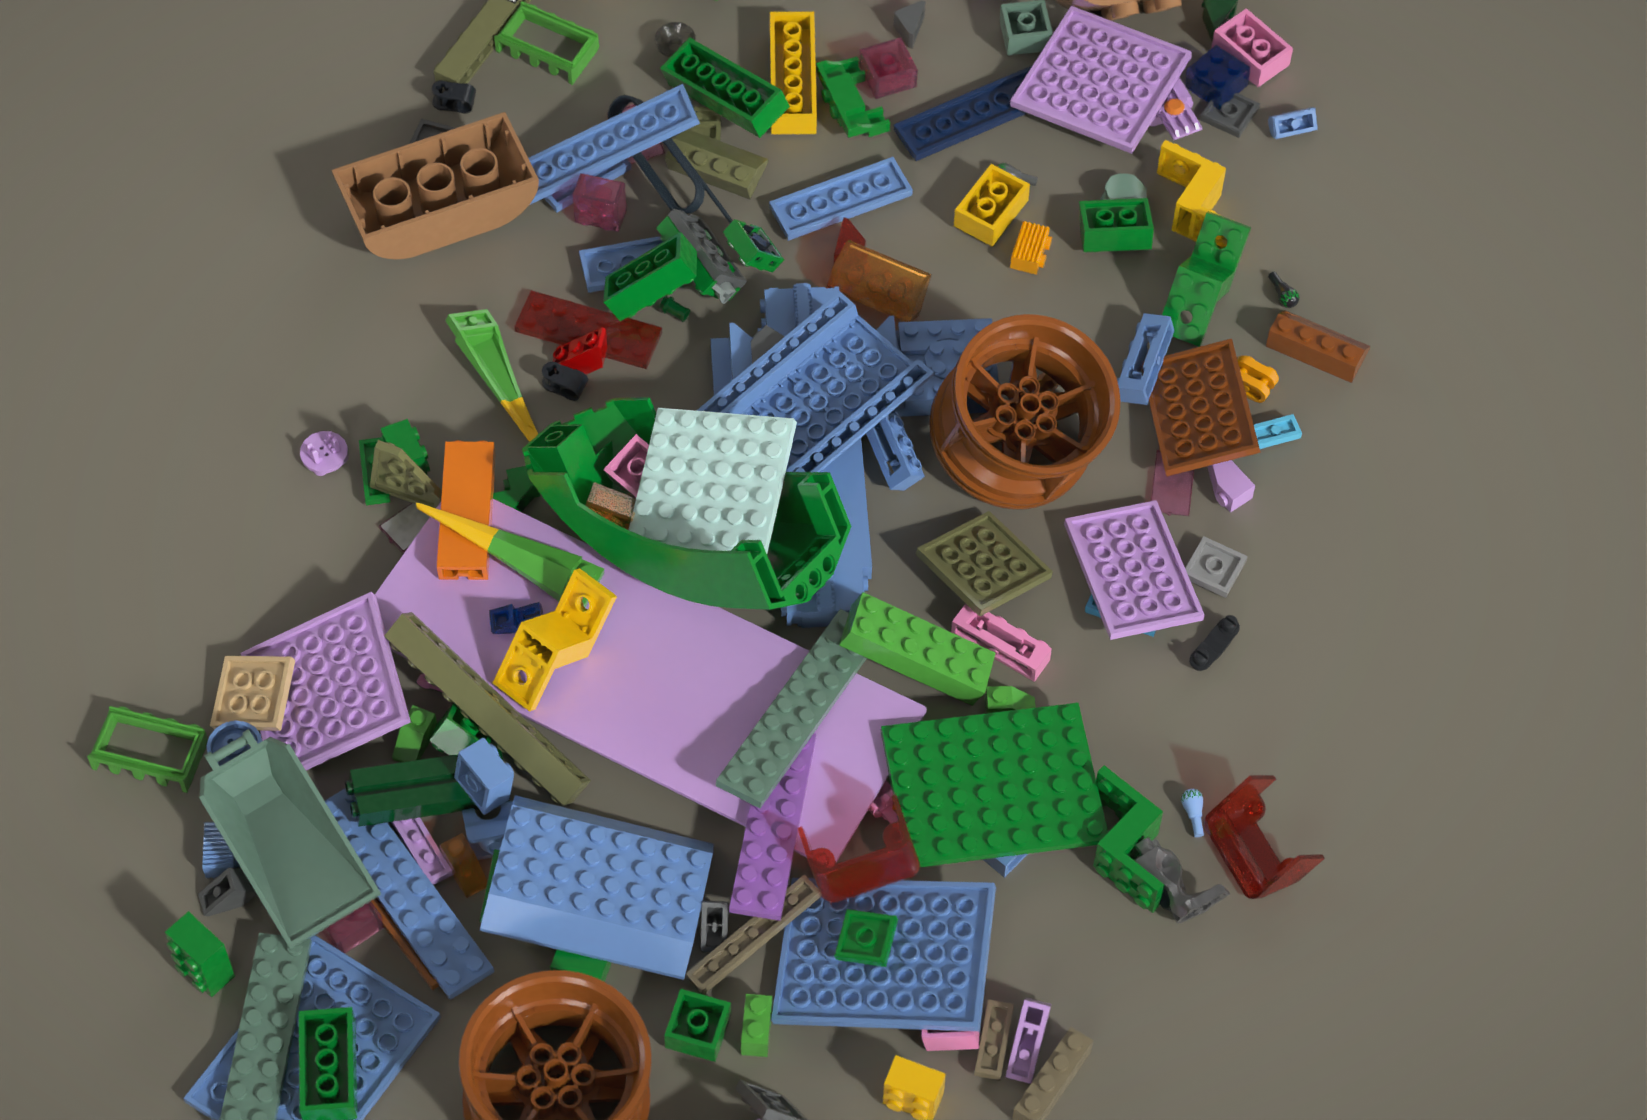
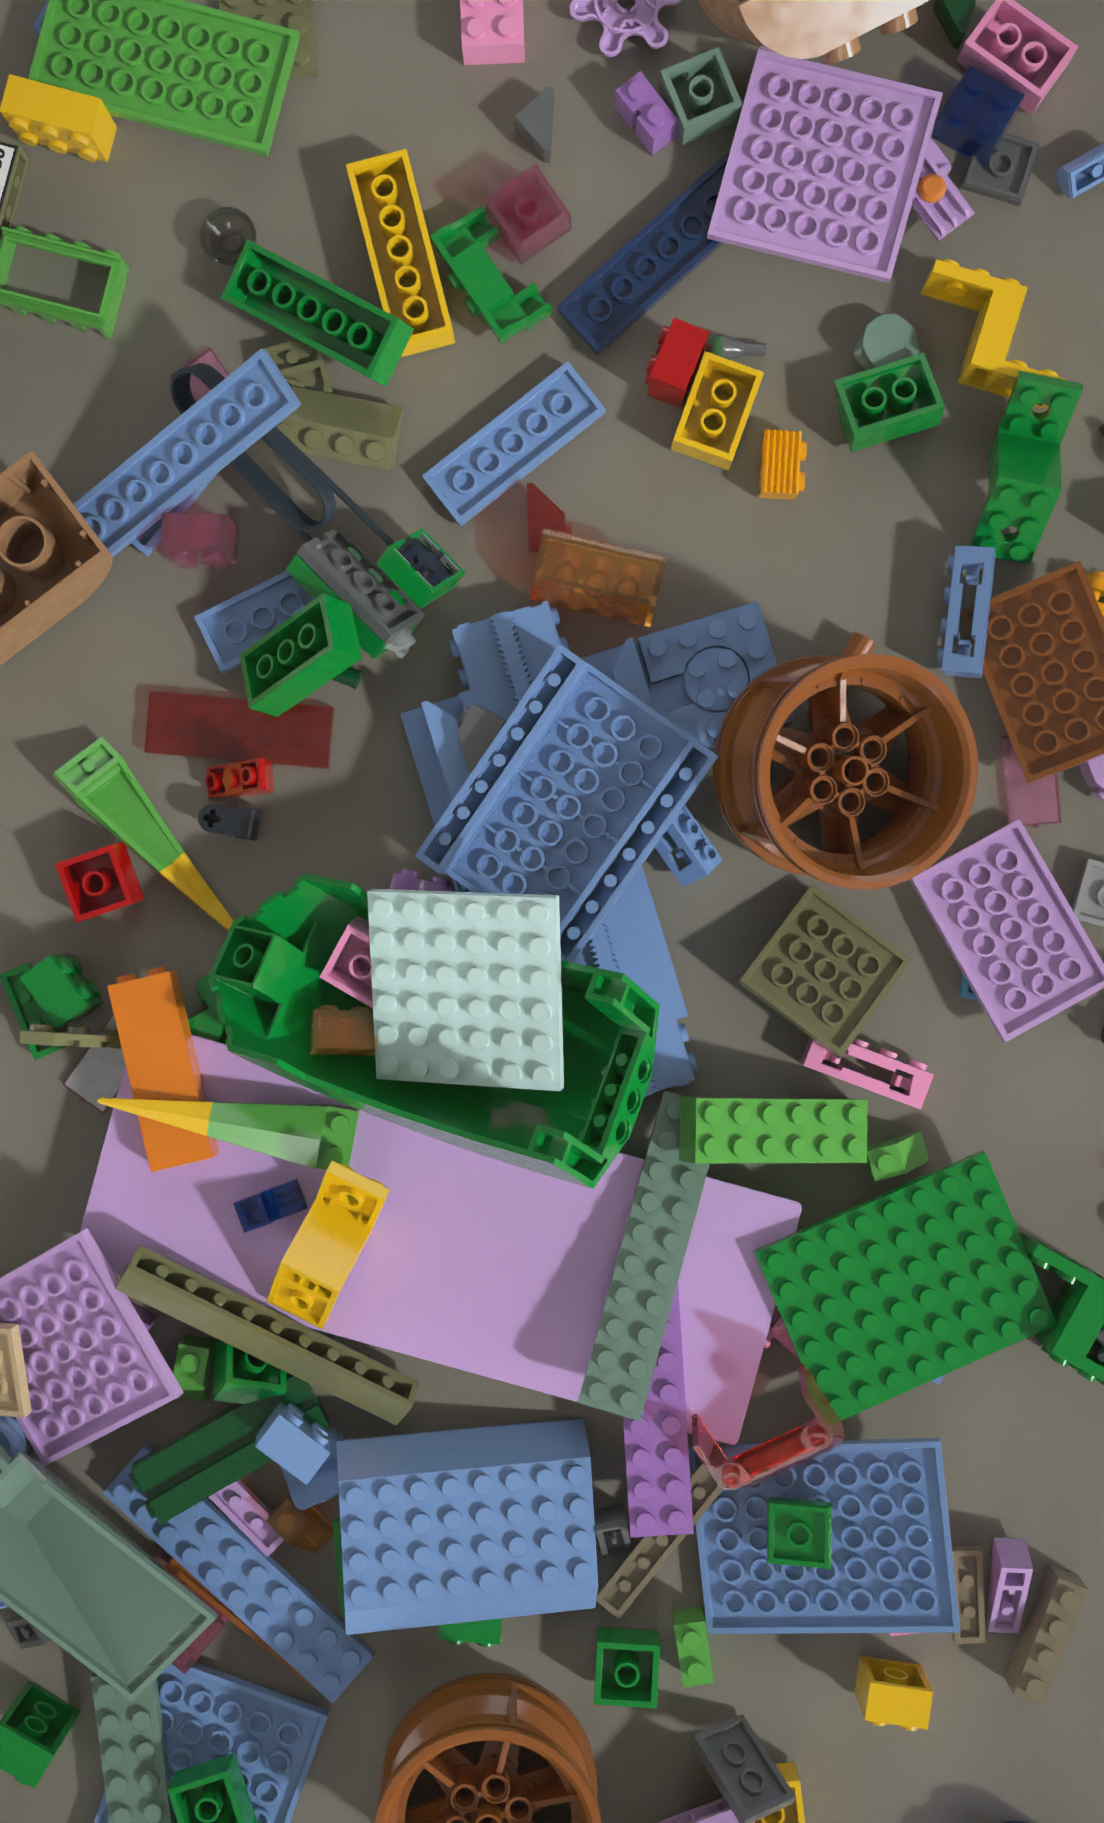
camera: 10 degrees left, 30 degrees up
(455, 394) = (99, 881): none -> red brick
(968, 167) = (677, 361): none -> red brick
(986, 30) = (656, 122): none -> medium lavender piece

